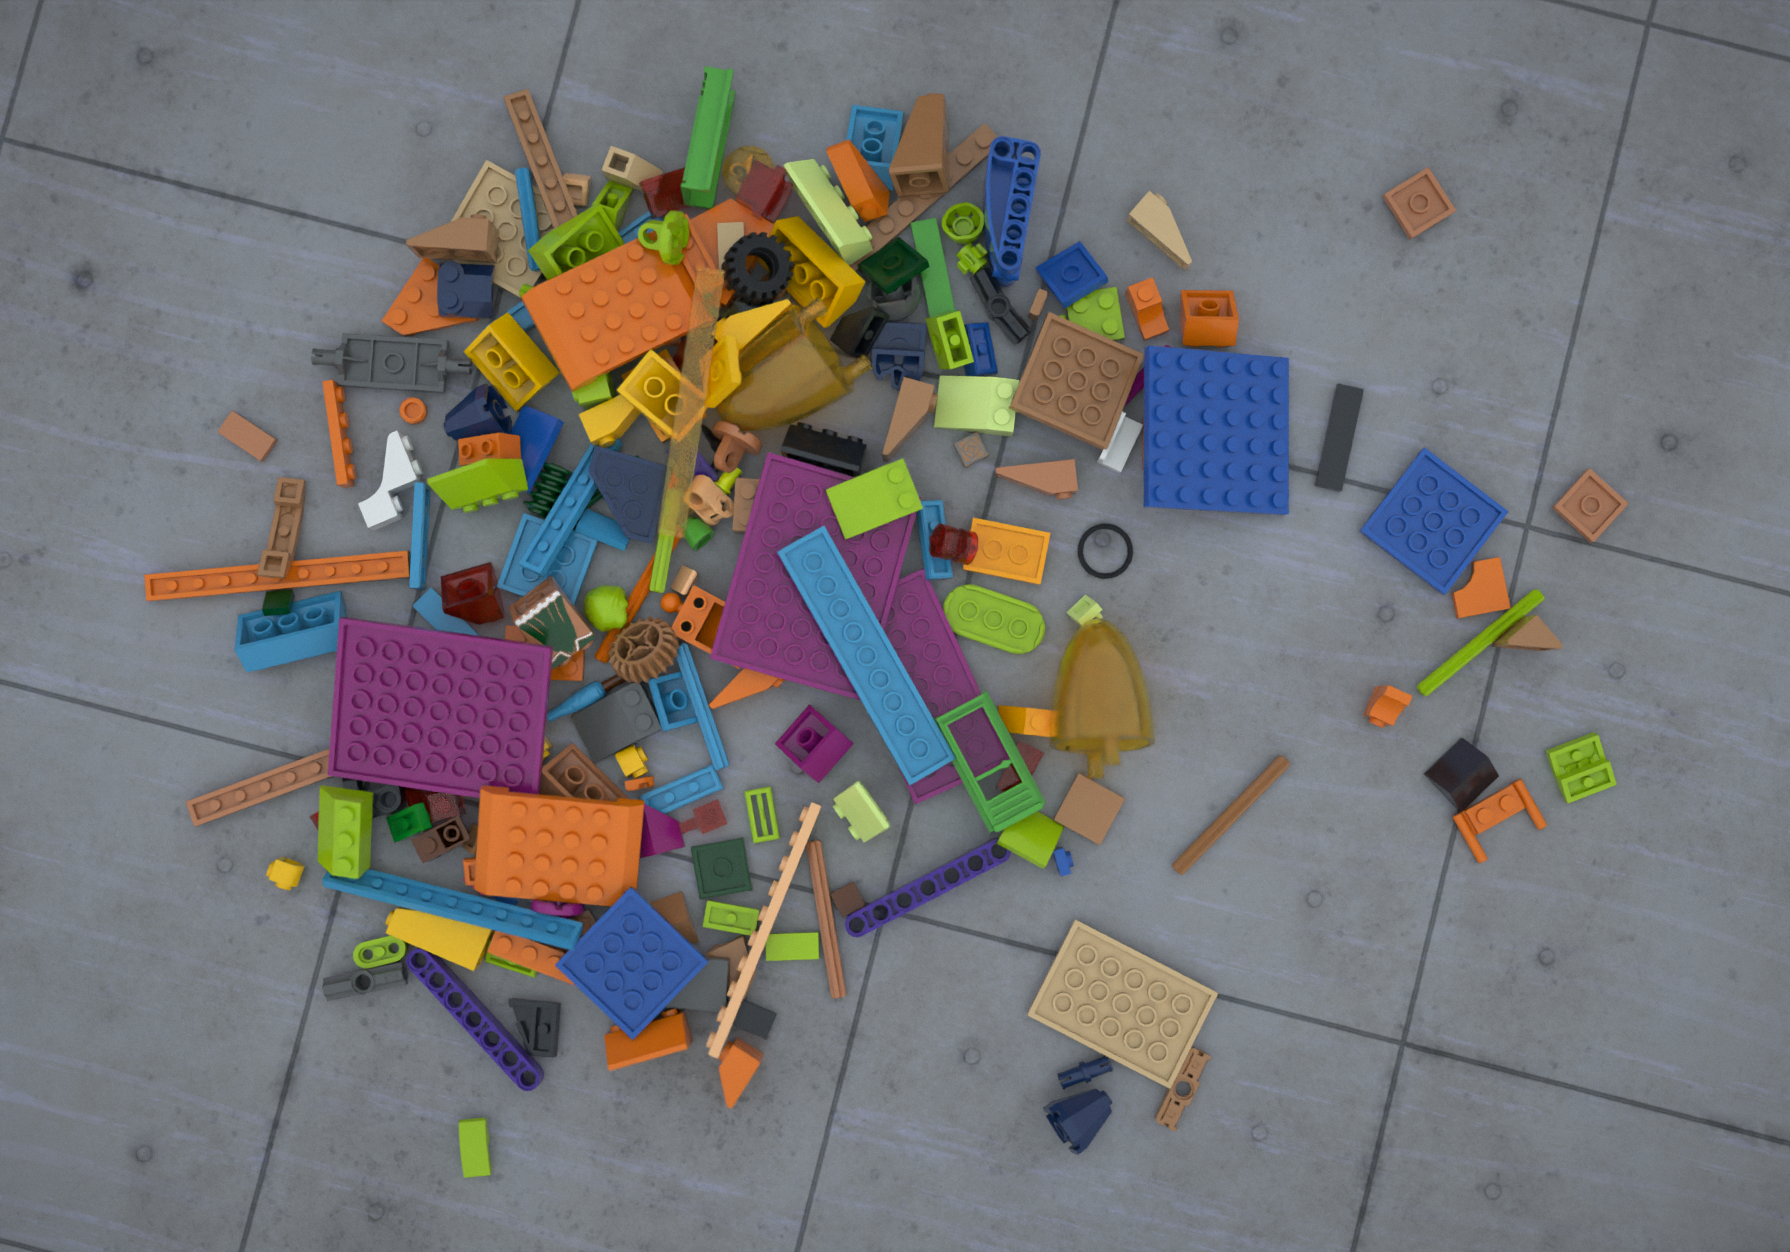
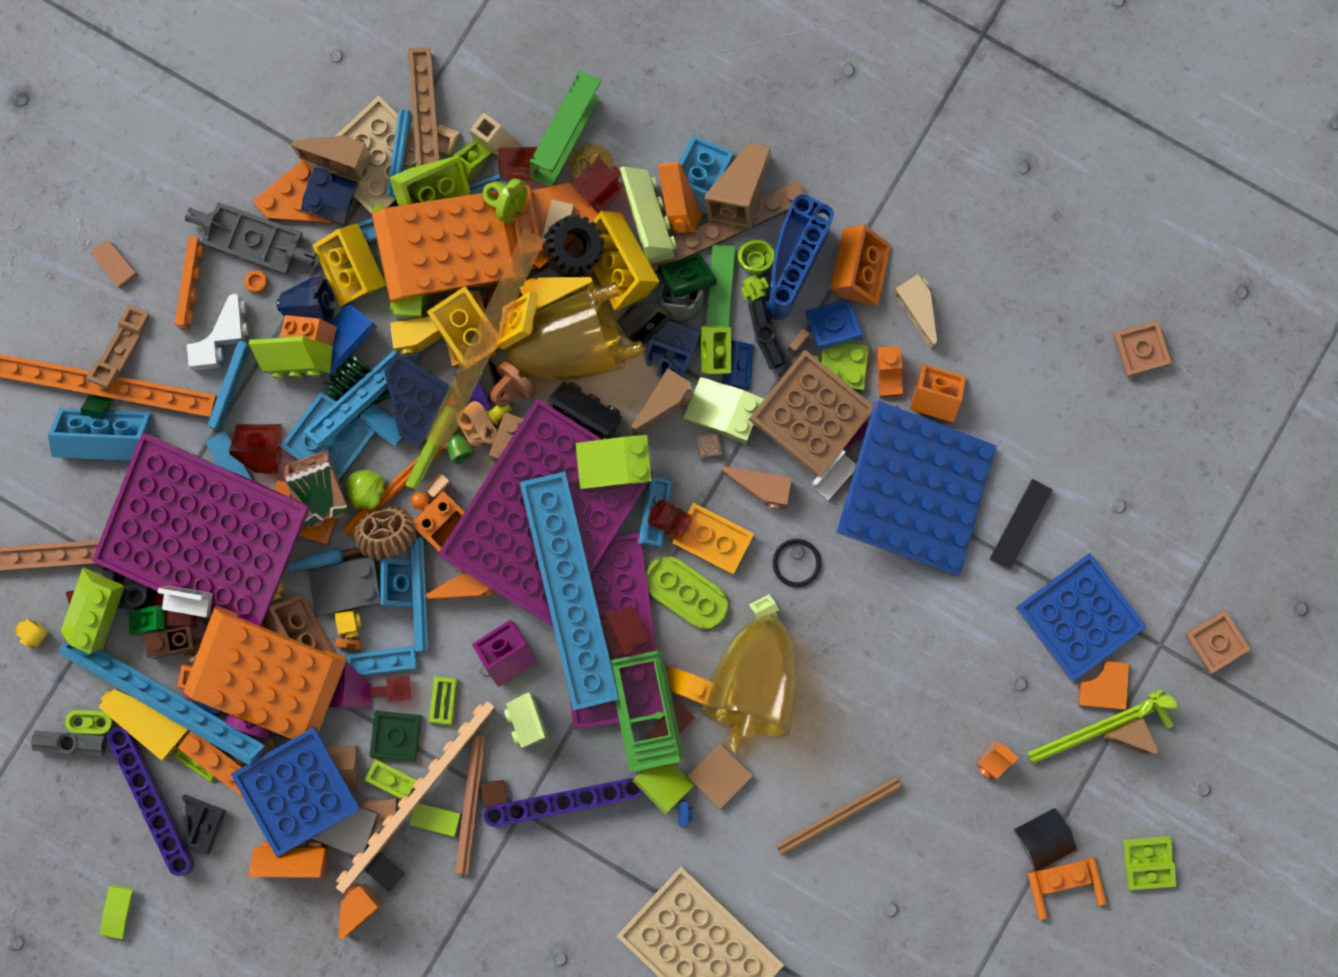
camera: 15 degrees right, 5 degrees down
(447, 789) = (186, 601): none -> white panel
(940, 682) = (624, 631): none -> clear red plate
(1082, 199) = (860, 265): none -> orange slope
(1547, 592) = (1160, 704): none -> lime plant

